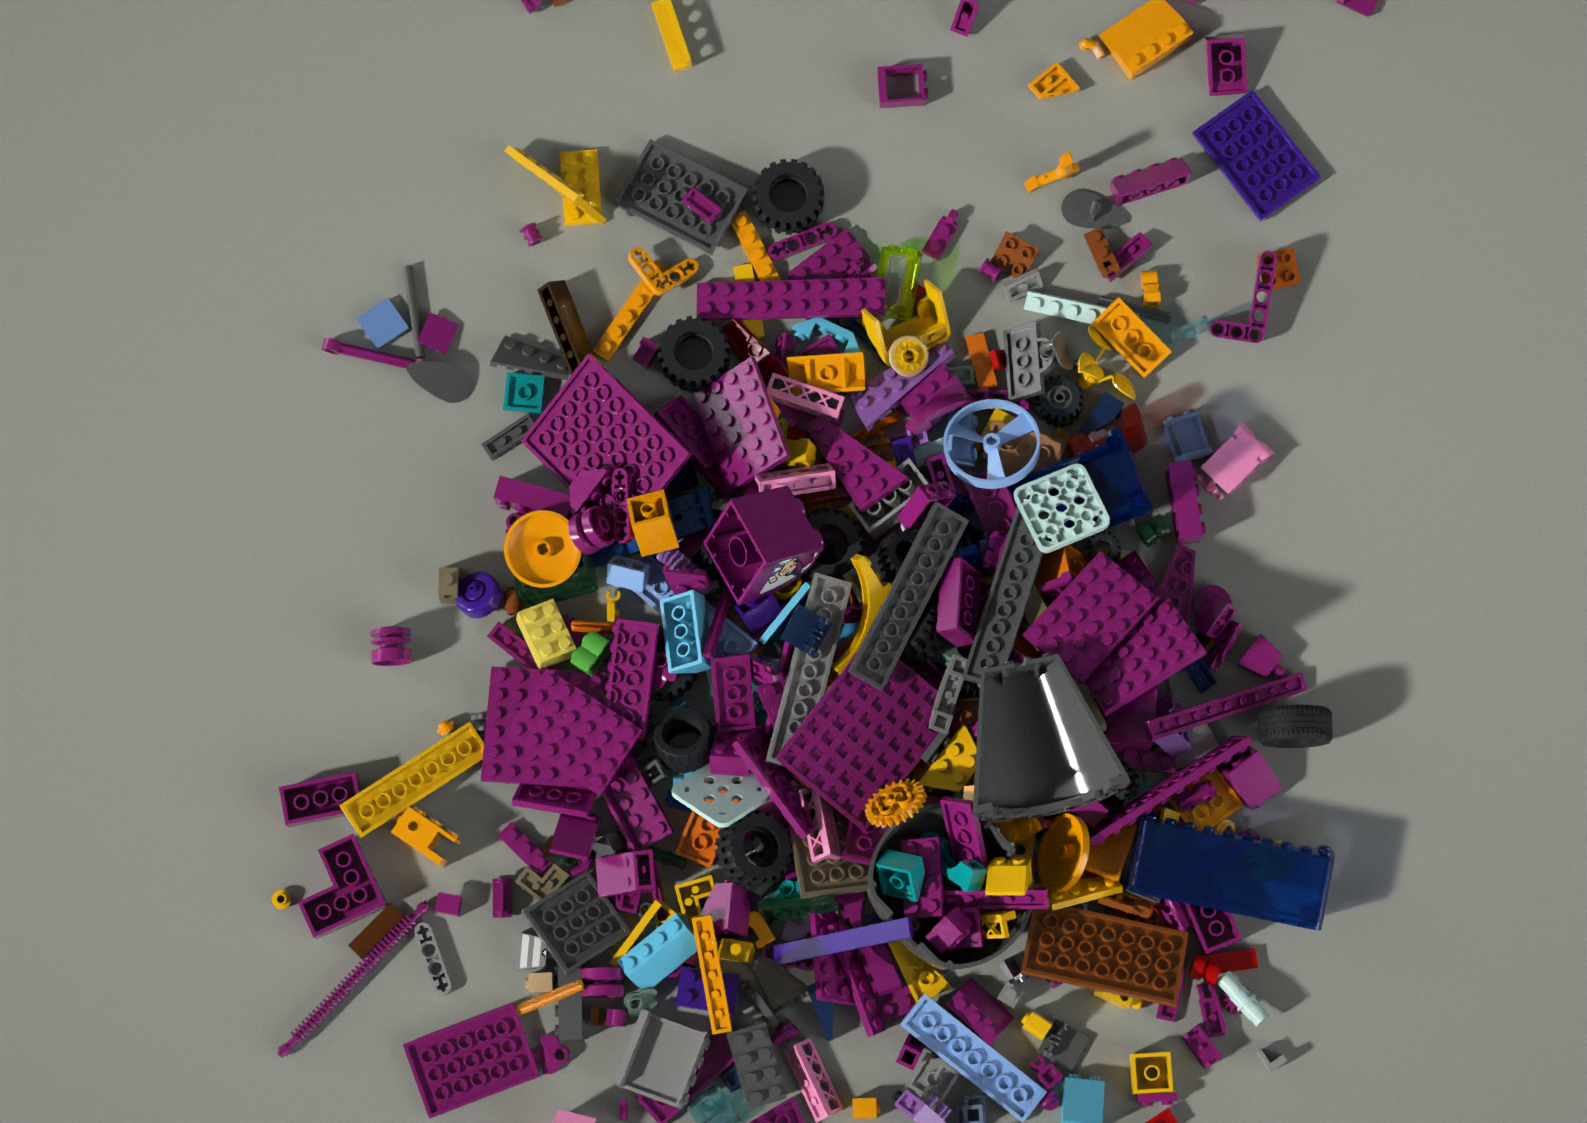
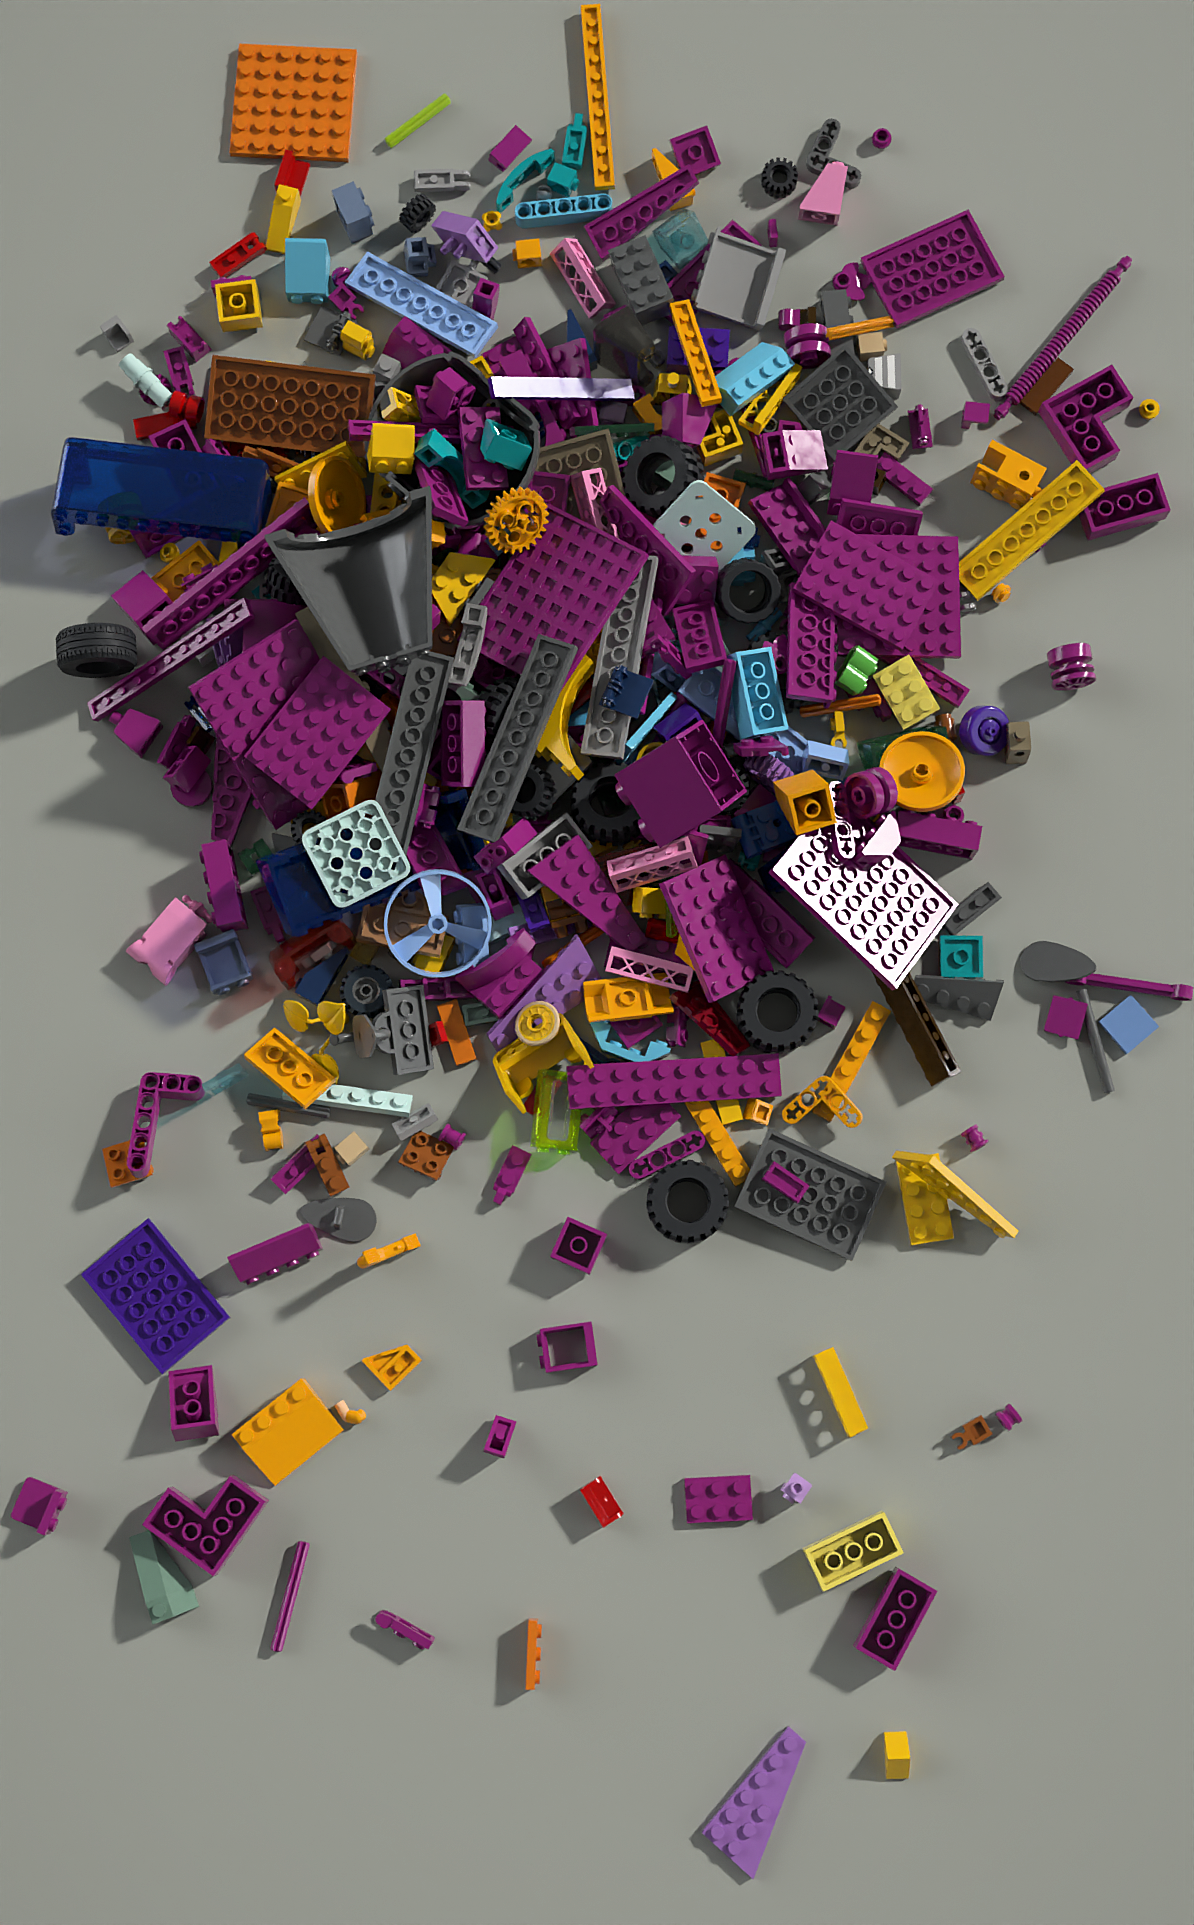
camera: 175 degrees right, 0 degrees up
(640, 1000) = (771, 331): sand green plate -> none
(719, 272) = (757, 1111): none -> light orange slope
(886, 167) = (578, 1245): none -> magenta brick
(1080, 265) = (351, 1149): none -> tan brick
(1148, 479) = (268, 913): none -> magenta hinge

